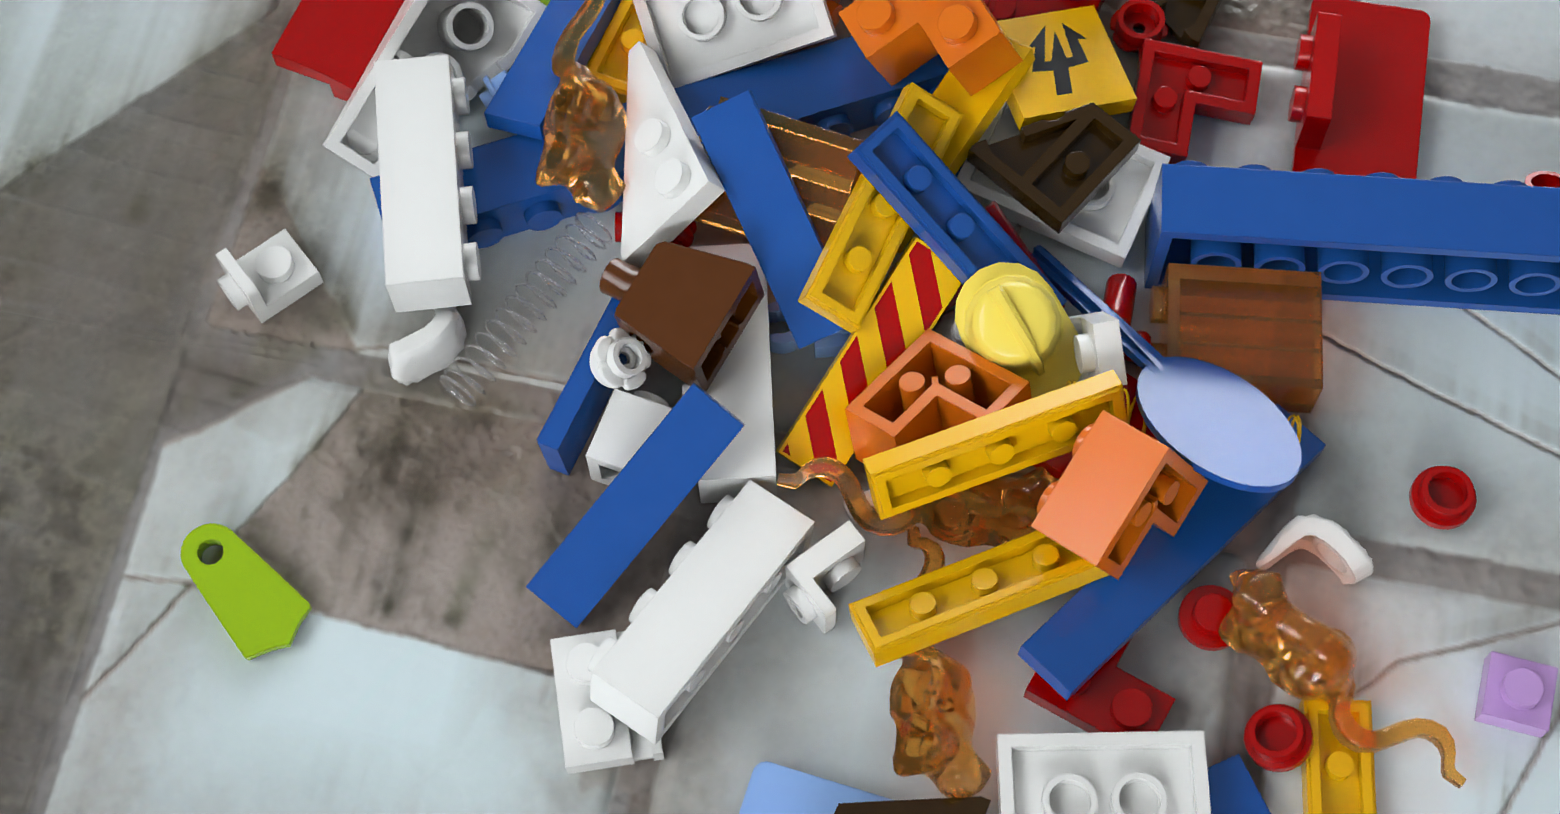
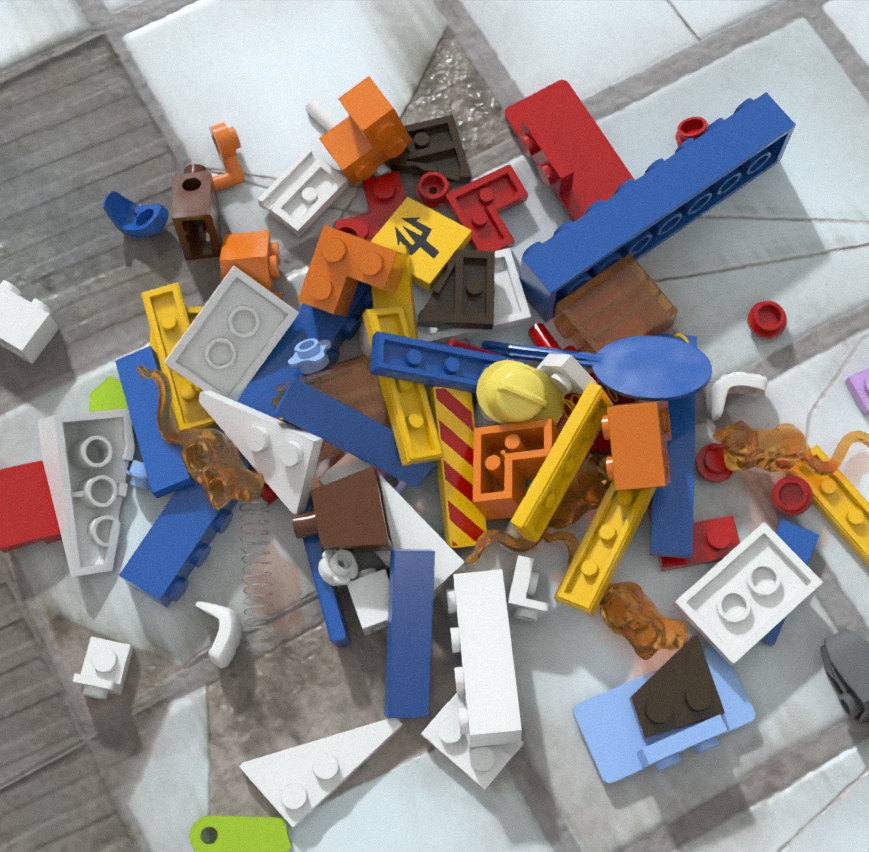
camera: 40 degrees left, 5 degrees up
(382, 579) = (309, 773): none -> white wing
(423, 183) = (156, 555): white brick -> none
(804, 94) = (310, 355): none -> light blue plate

